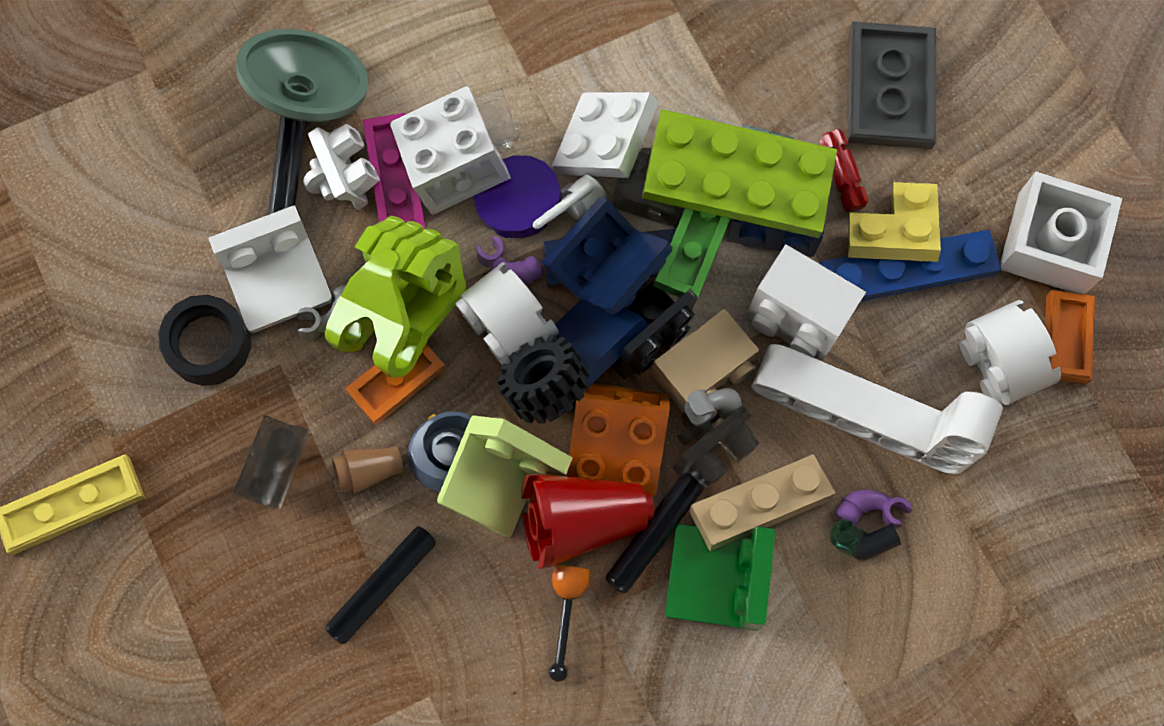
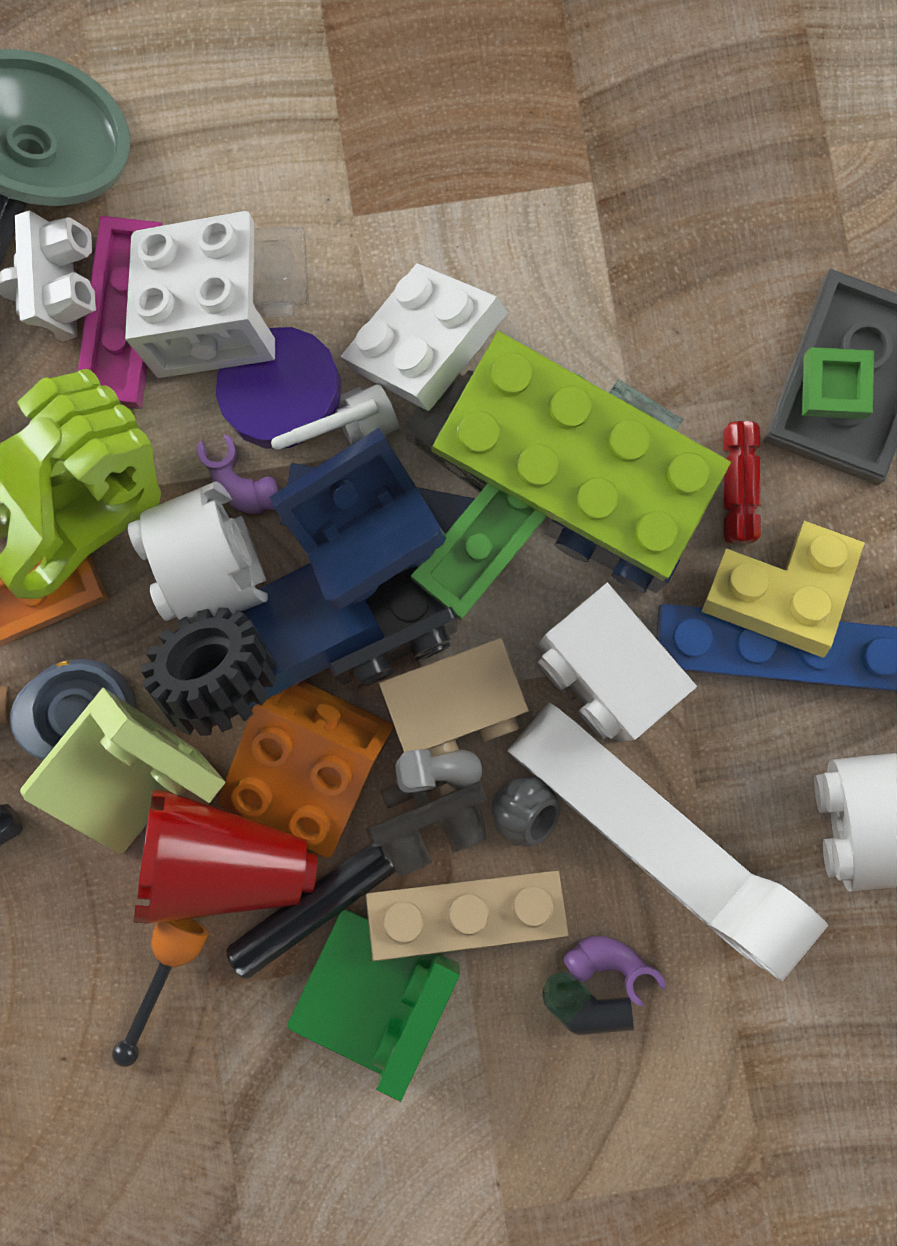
camera: 20 degrees right, 10 degrees up
(778, 420) = (525, 811): none -> dark grey piece
(884, 88) = (838, 383): none -> bright green plate

